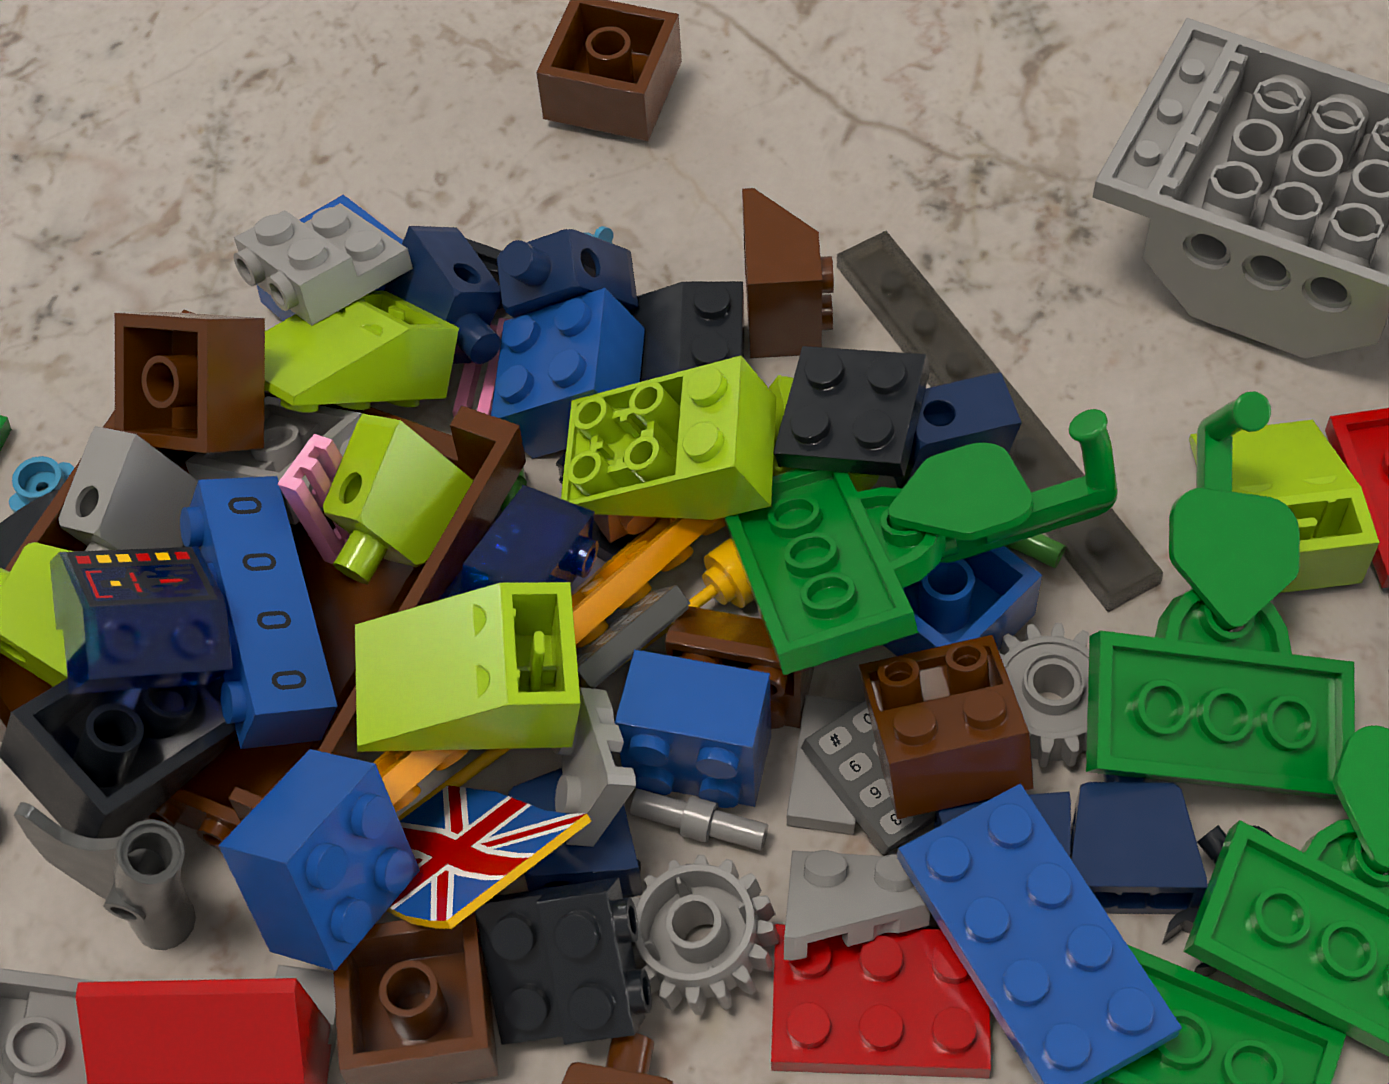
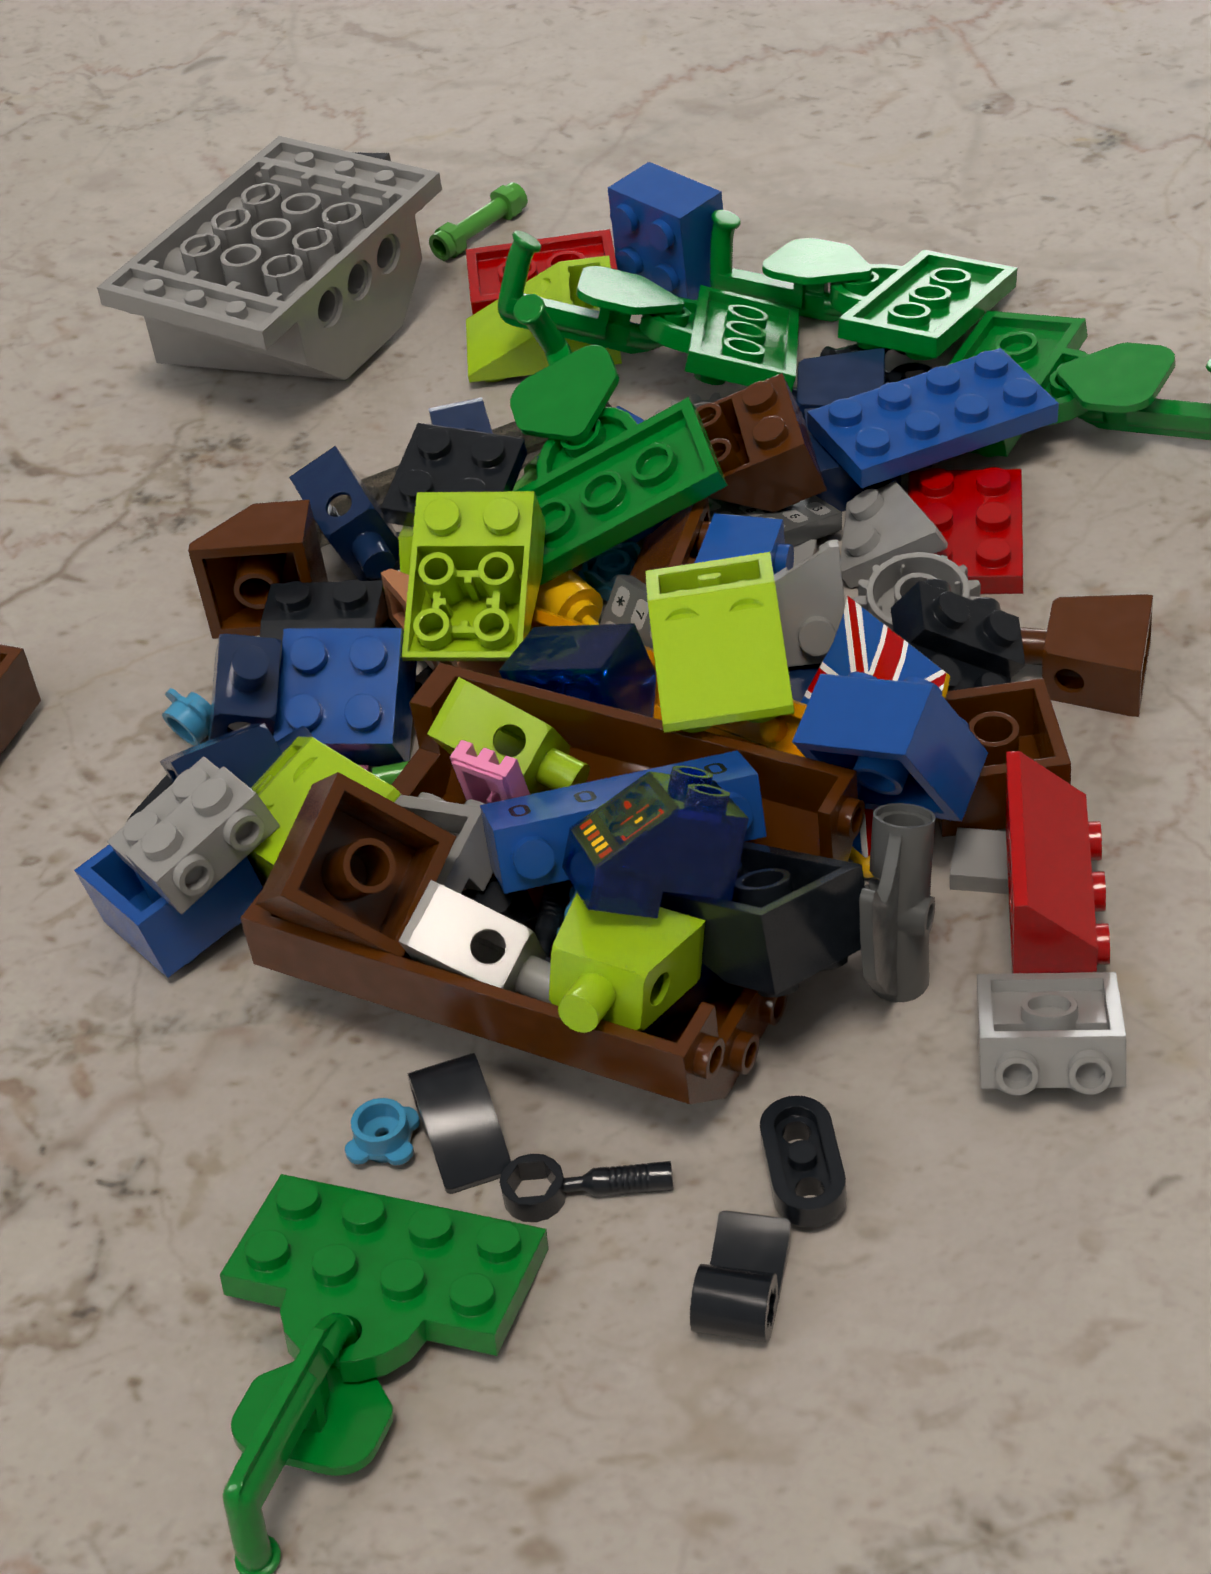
camera: 85 degrees left, 15 degrees down
(862, 314) = (361, 533): none -> dark blue torso

